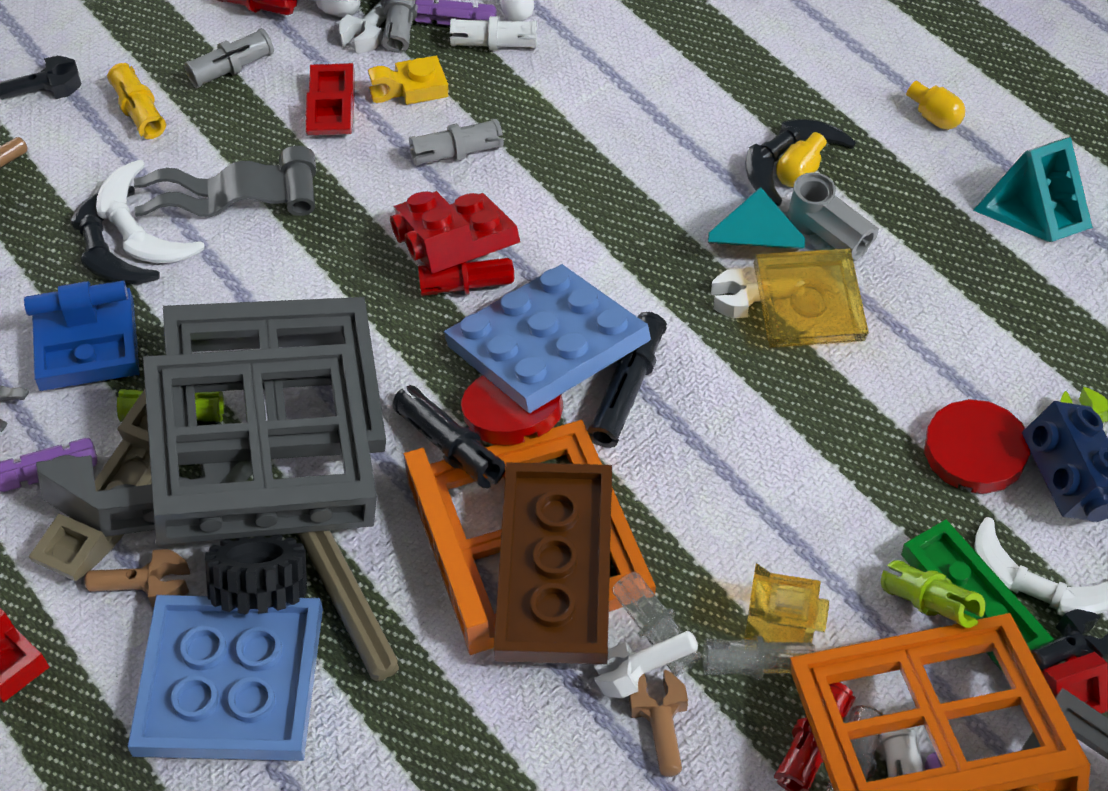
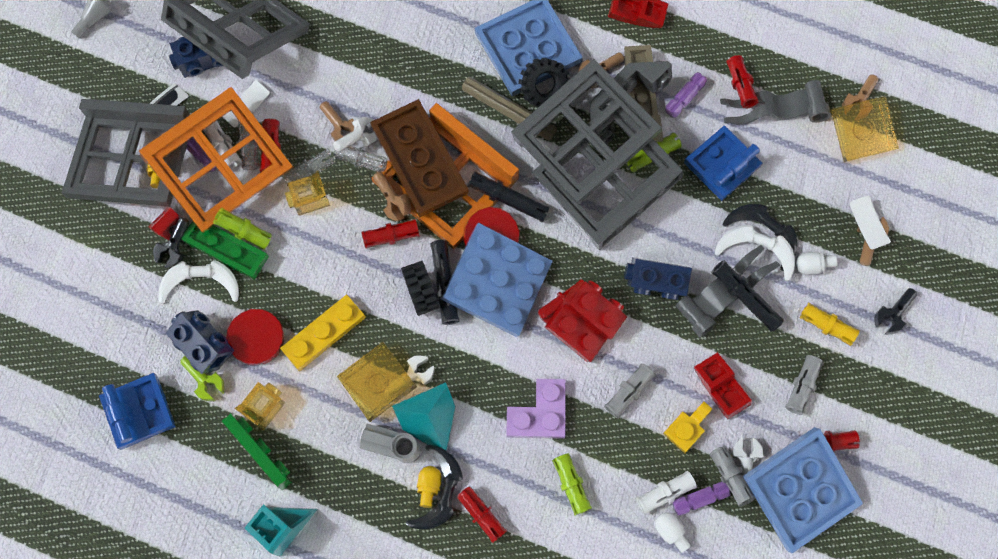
camera: 150 degrees right, 20 degrees up
(83, 168) = (814, 262): none -> white cylinder
(209, 170) = (739, 287): none -> black pin
(309, 231) = (658, 276): none -> dark blue brick
(591, 166) = (545, 419): none -> lavender plate
(606, 87) = (571, 484): none -> lime pin
(637, 480) = (390, 233): none -> red pin
(643, 523) = (393, 200): none -> medium nougat bar
(674, 366) = (420, 288): none -> black tyre
(746, 102) = (481, 514): none -> red axle
(860, 404) = (323, 332): none -> yellow plate
(1009, 341) = (261, 404): none -> clear yellow window
(1038, 291) = (258, 450): none -> green plate

